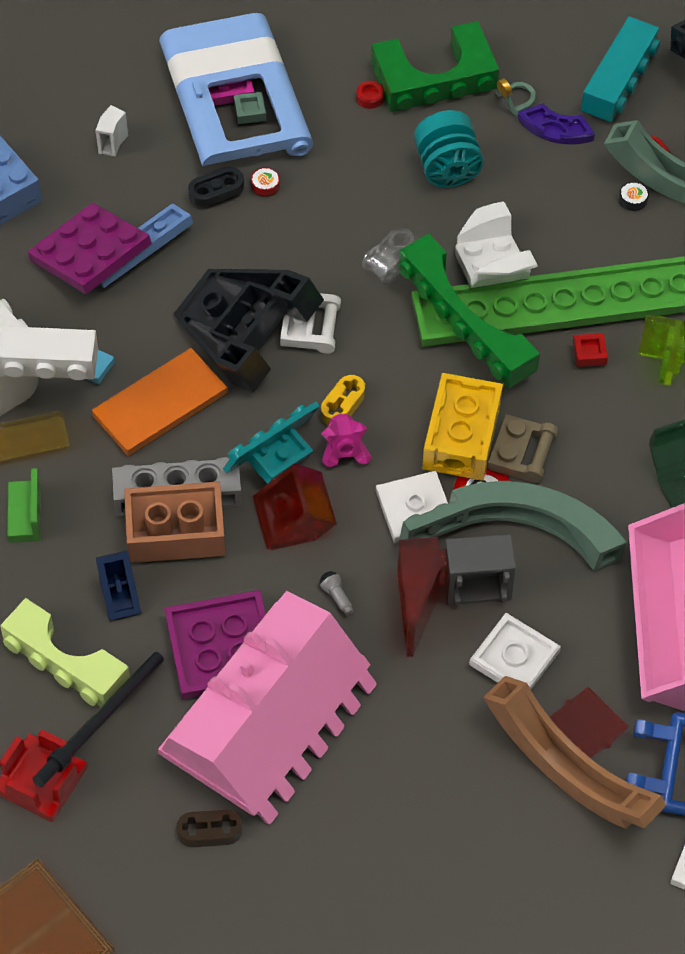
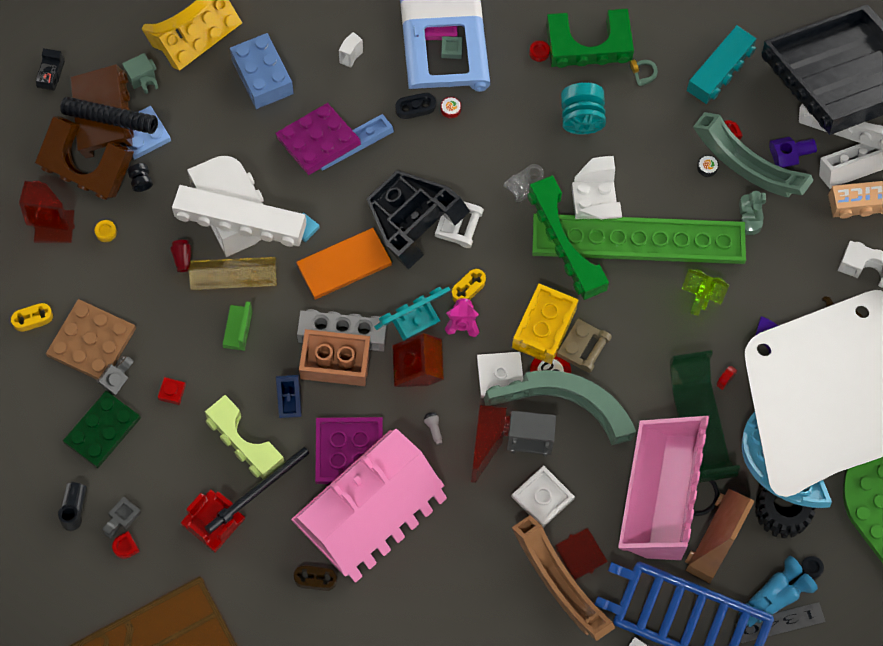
camera: 10 degrees right, 10 degrees up
(556, 127) = (665, 100): dark purple tile -> none
(590, 349) = (647, 280): red plate -> none

